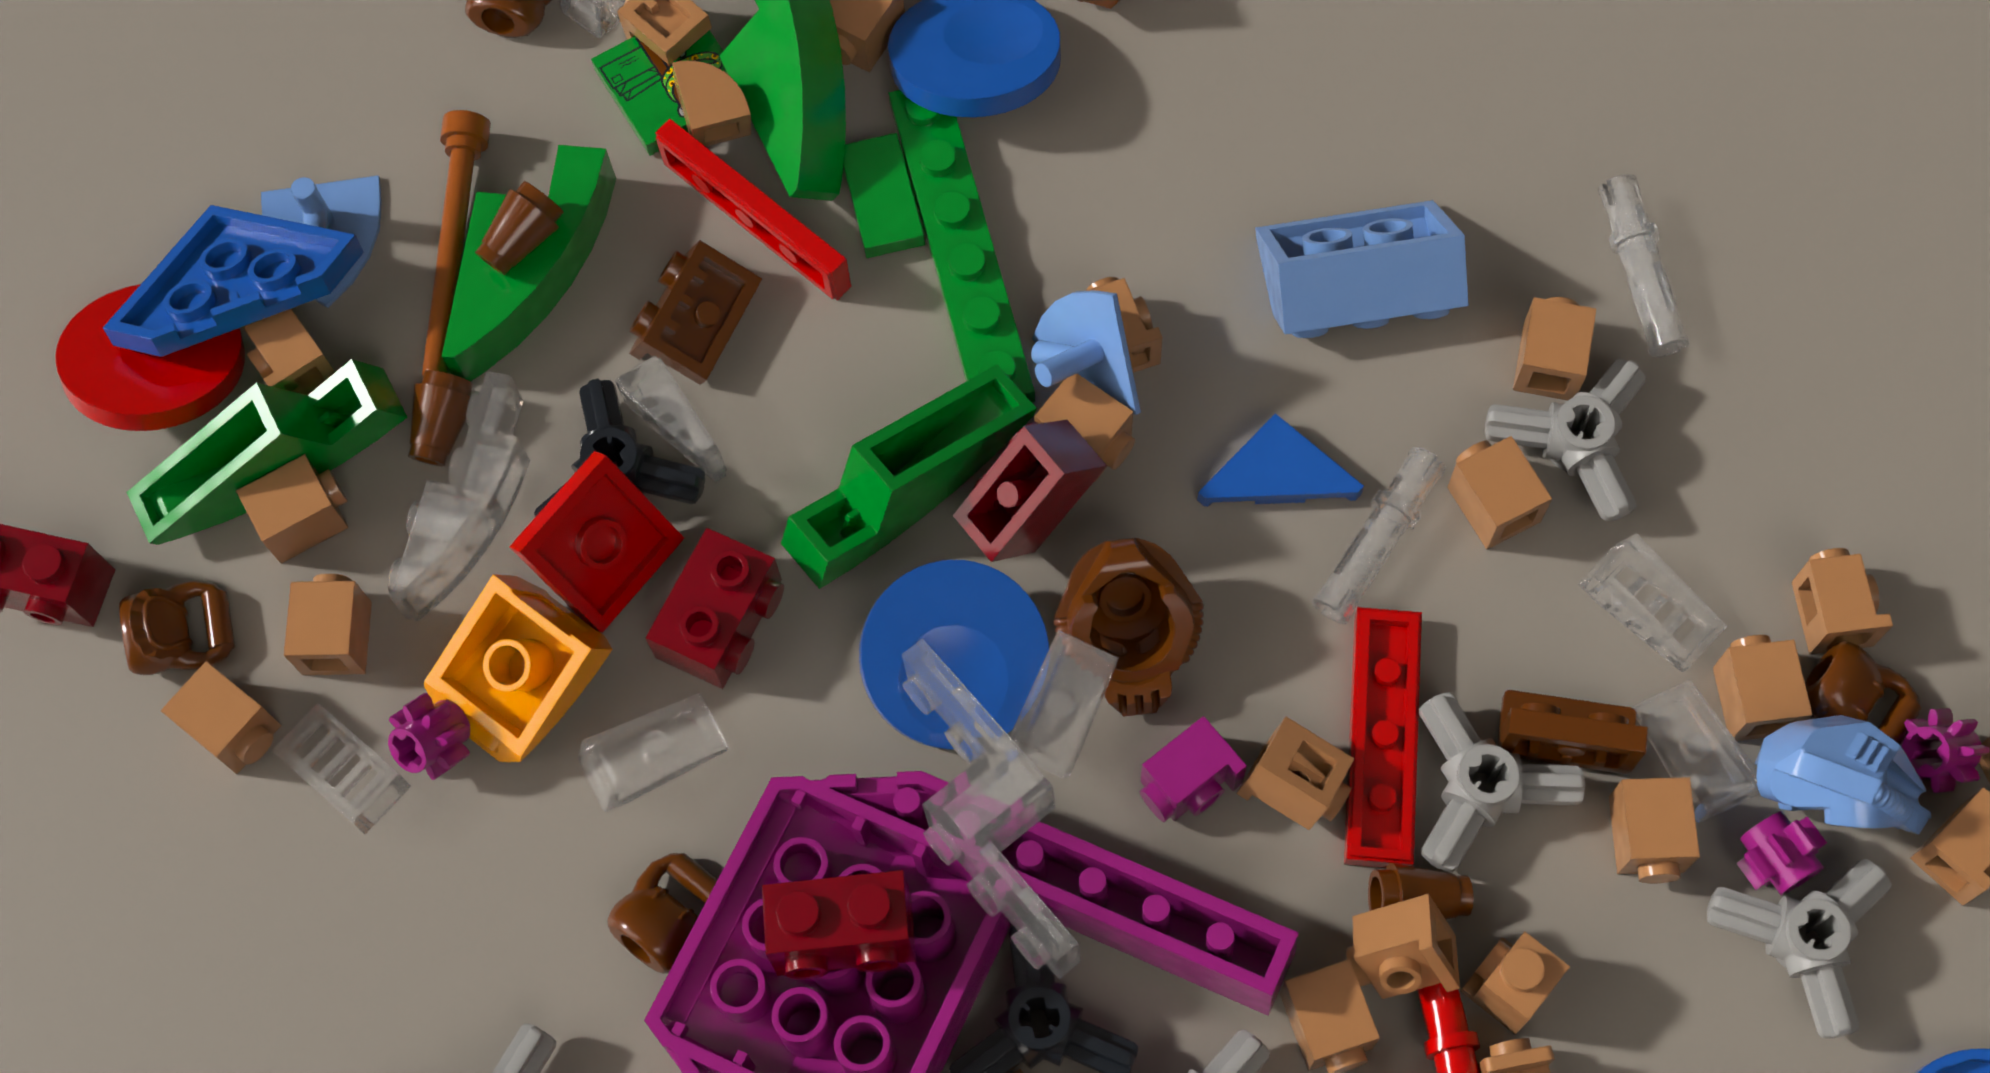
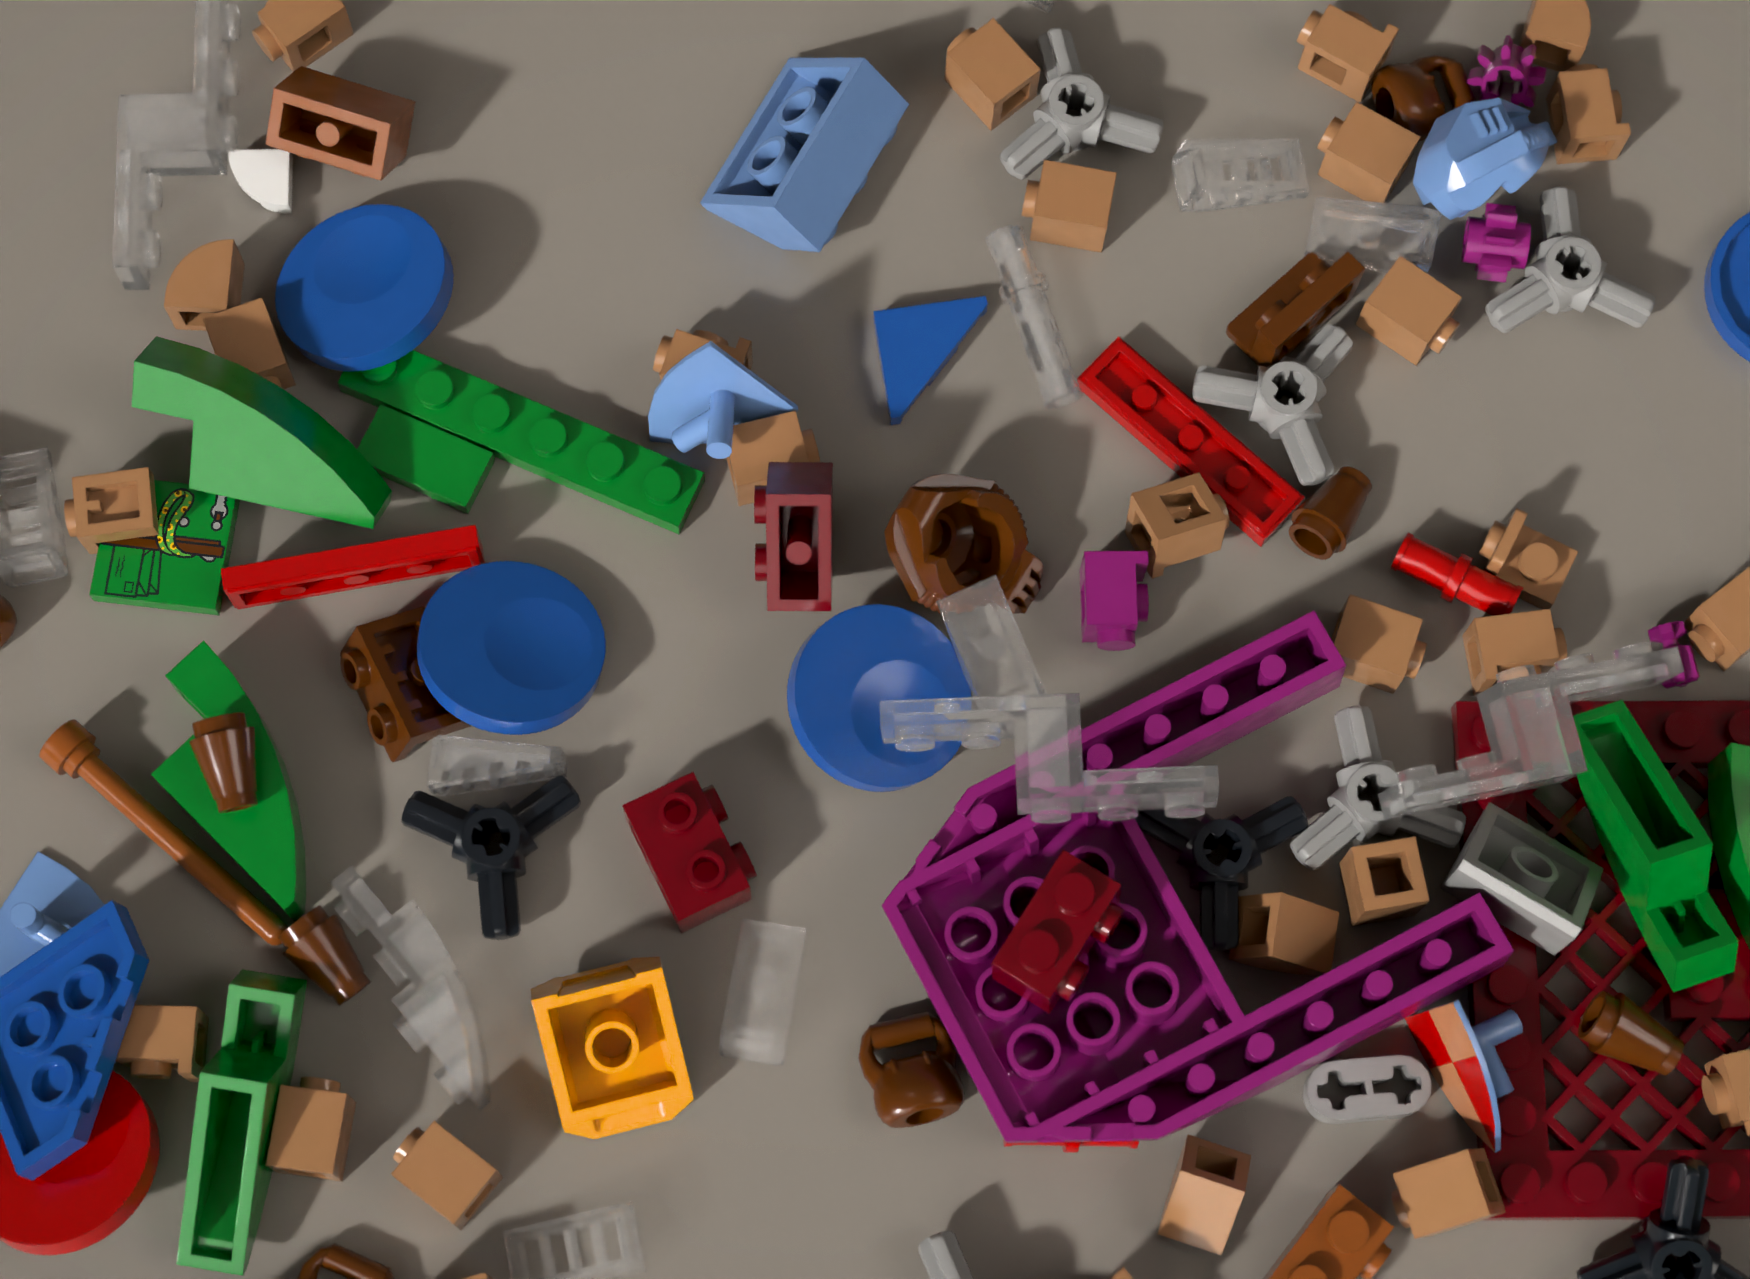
camera: 60 degrees left, 5 degrees up
(429, 736) = (615, 1155): magenta gear -> none
(597, 541) = (560, 900): red plate -> none
(711, 103) = (231, 526): medium nougat brick -> none
(775, 360) = (511, 647): none -> blue piece
(905, 474) = (698, 621): green slope -> none
(1404, 948) = (1369, 551): medium nougat brick -> none
(1515, 980) = (1447, 495): medium nougat brick -> none

